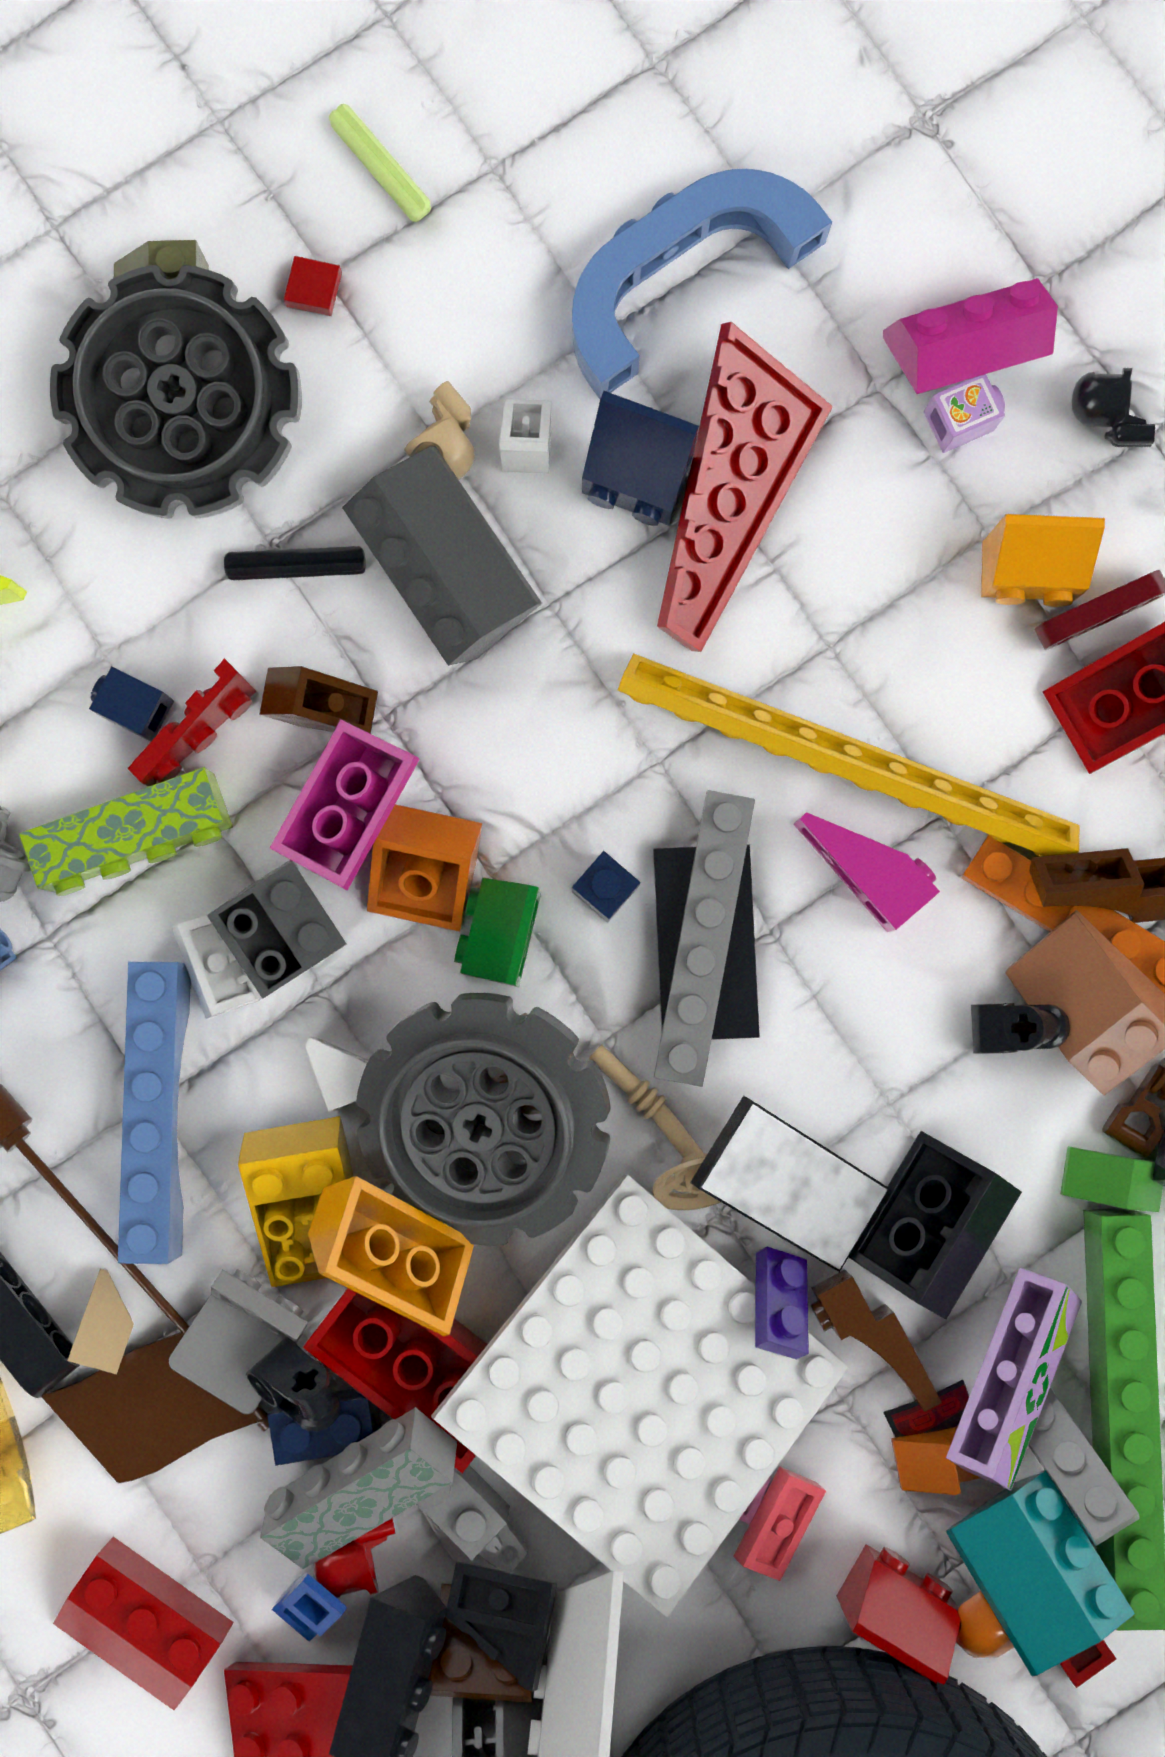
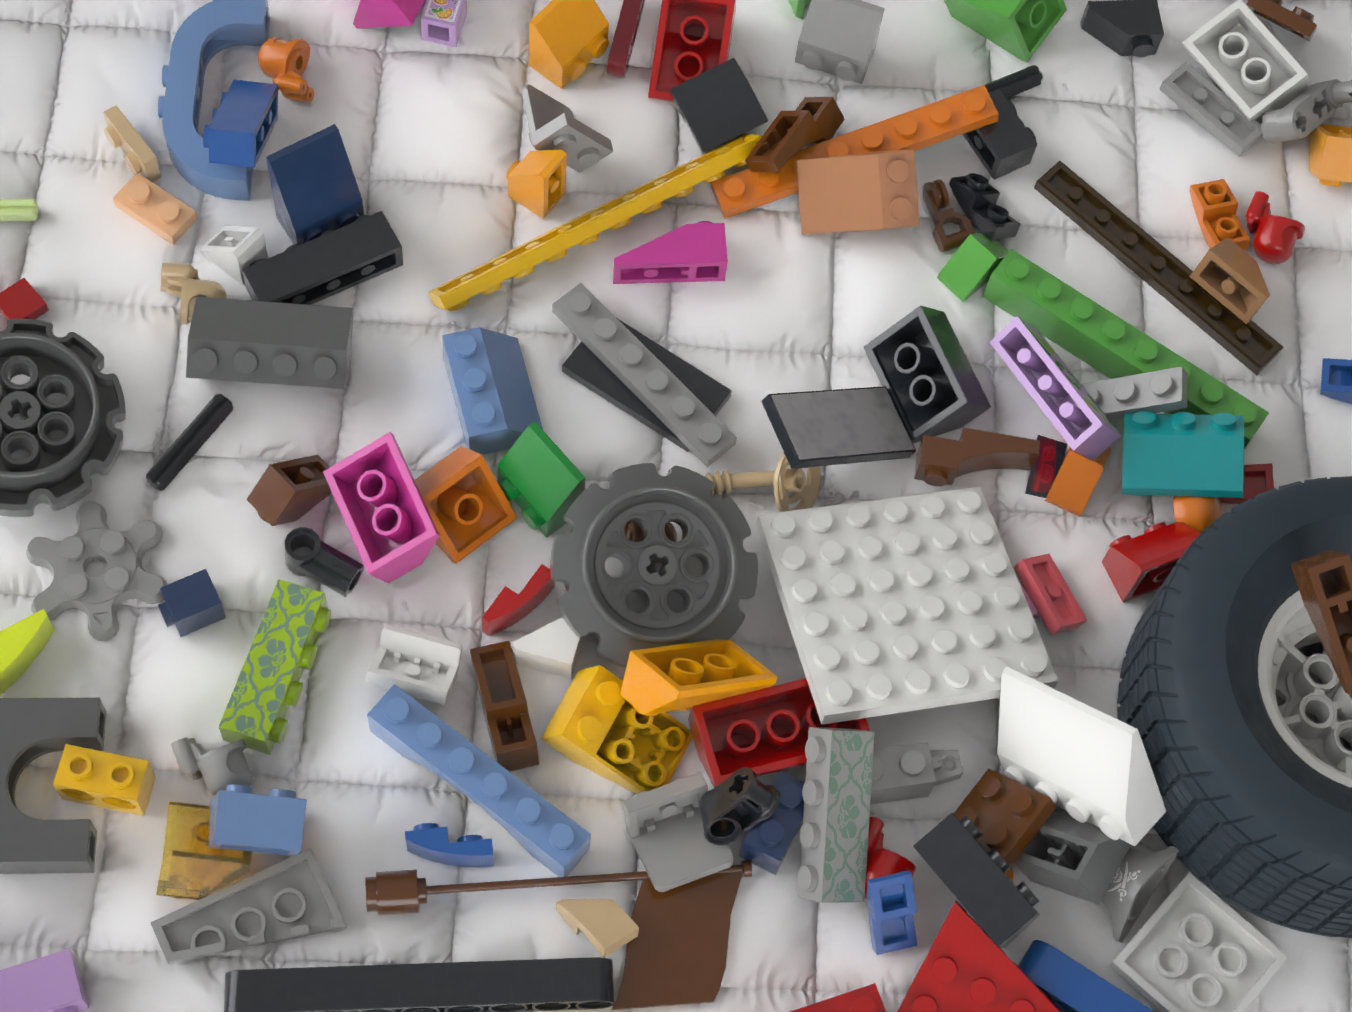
camera: 60 degrees left, 20 degrees down
(66, 1118) = (433, 844): none -> blue slope
(115, 618) = (102, 594): none -> light grey plate
(203, 714) = (247, 575): red wing -> none
(251, 1072) = (504, 706): none -> reddish brown slope
(265, 793) = (323, 564): none -> black piece
(276, 928) = (425, 603): dark grey slope -> none
(354, 1001) = (513, 607): none -> red slope
(505, 1616) = (987, 782): black wing -> none
(515, 320) = (155, 208): none -> light nougat plate
(564, 221) = (137, 153): none -> tan plate
(570, 803) = (489, 388): none -> medium blue slope
(576, 532) = (327, 263): none -> black brick
(605, 886) = (563, 406): dark blue brick -> none
(657, 326) = (242, 123): none -> blue brick
(745, 457) = (378, 157): wing -> none
(775, 305) = (286, 64): none -> orange piece
(781, 1303) = (909, 487): dark purple plate -> none
(840, 662) = (538, 180): none -> light orange slope
(913, 636) = (555, 128): none -> light grey bracket
(1017, 1028) = (837, 249): black piece -> none
(1086, 775) = (718, 105): none -> black slope

